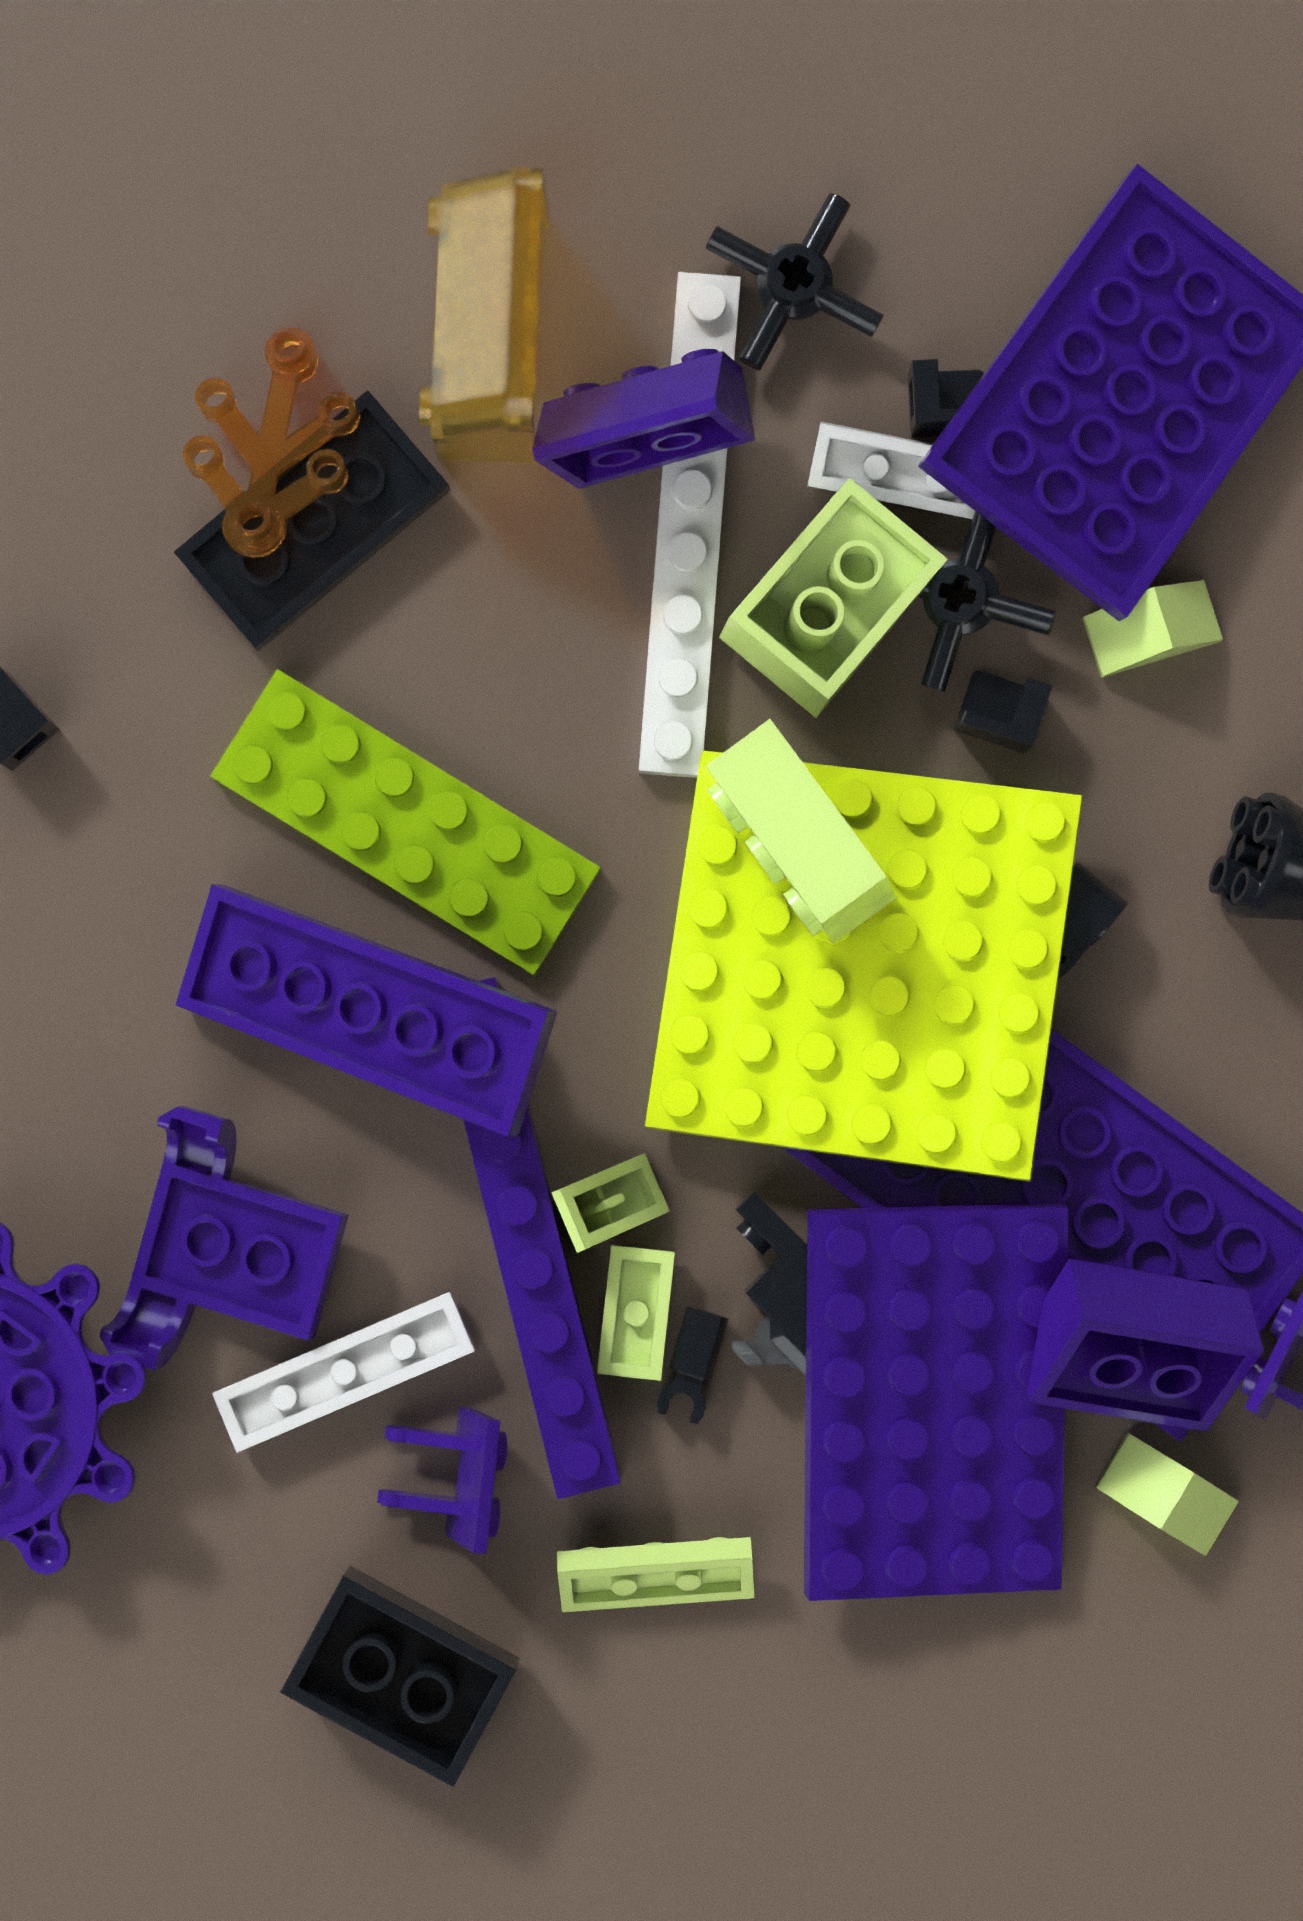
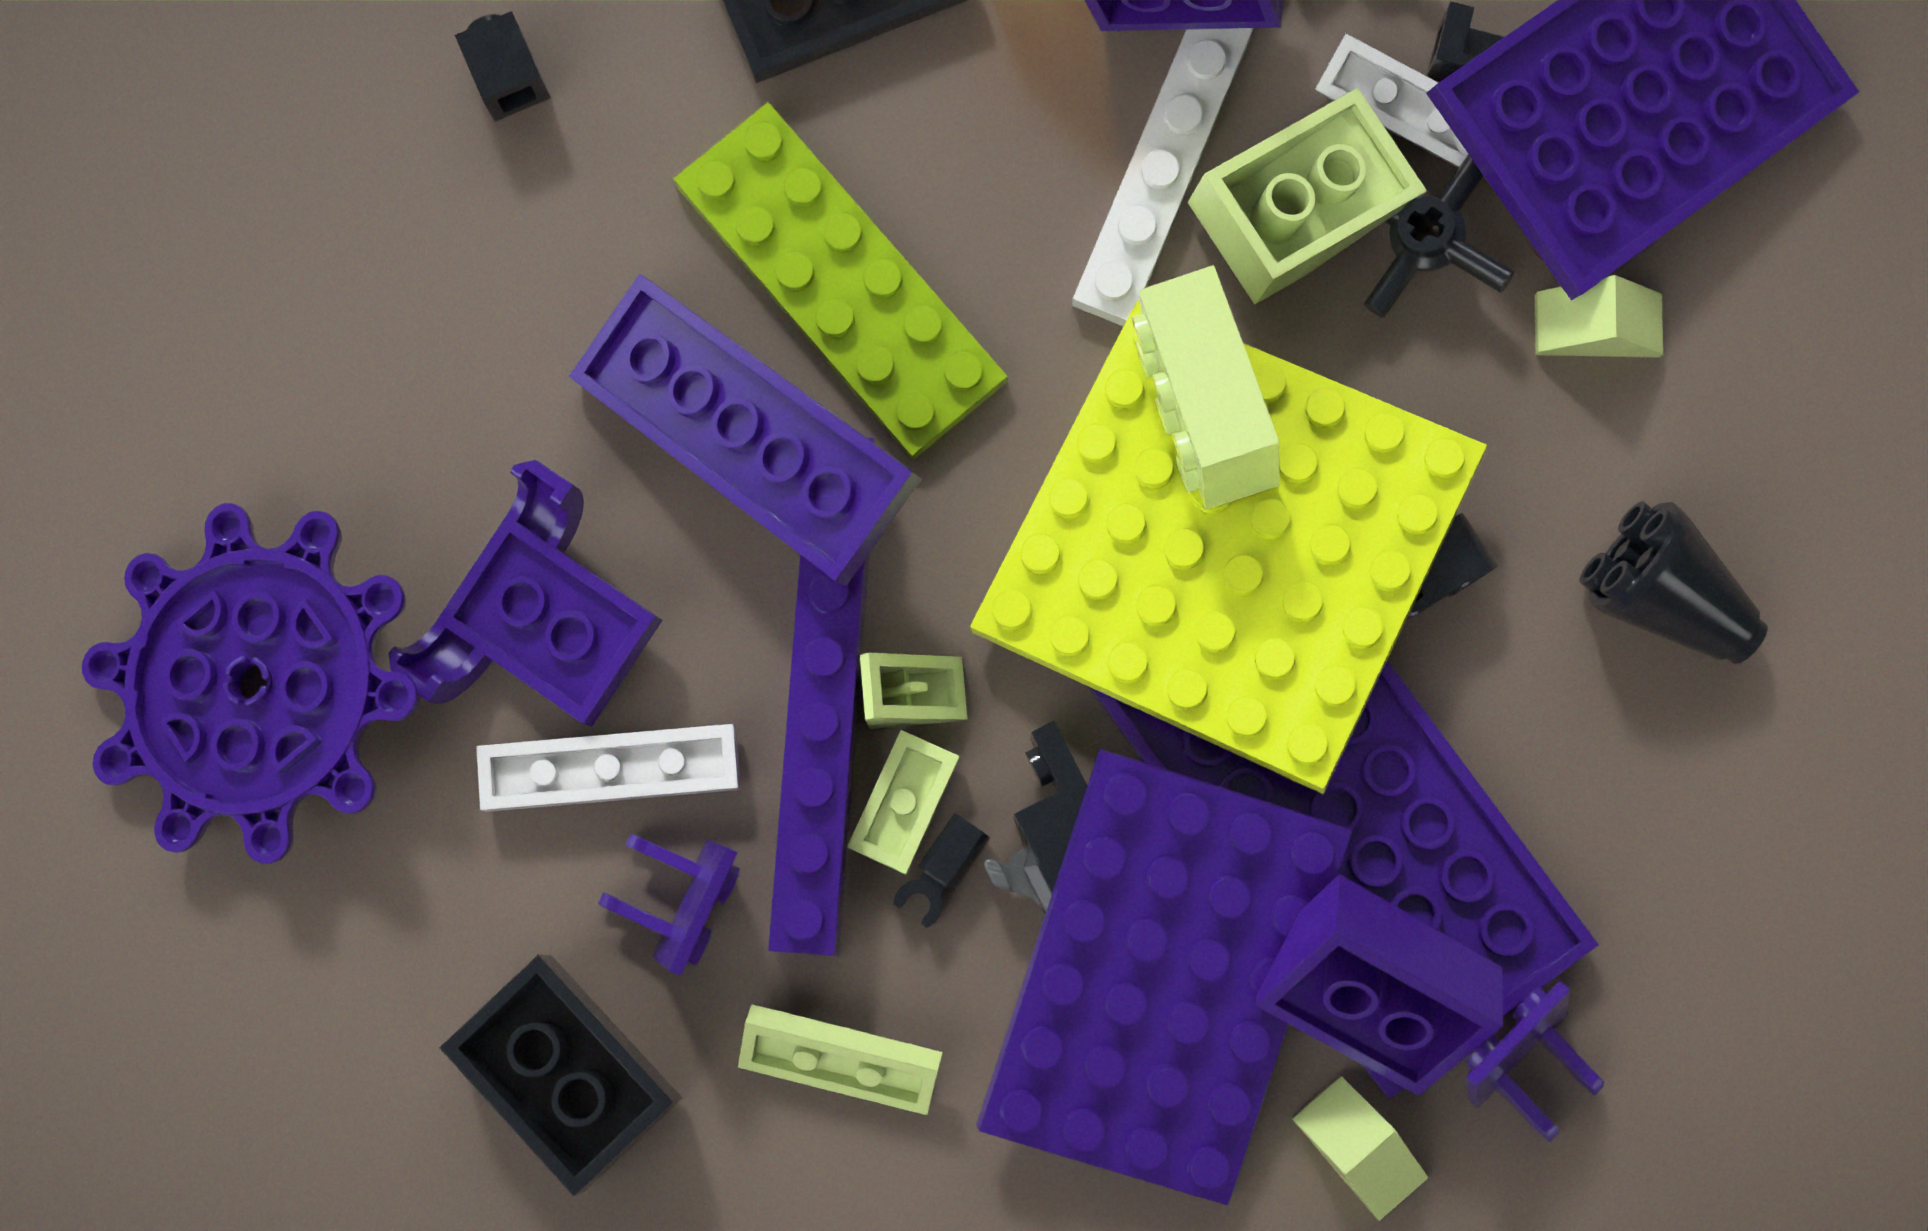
camera: 20 degrees right, 5 degrees down
(1003, 710) = (1433, 353): black panel -> none

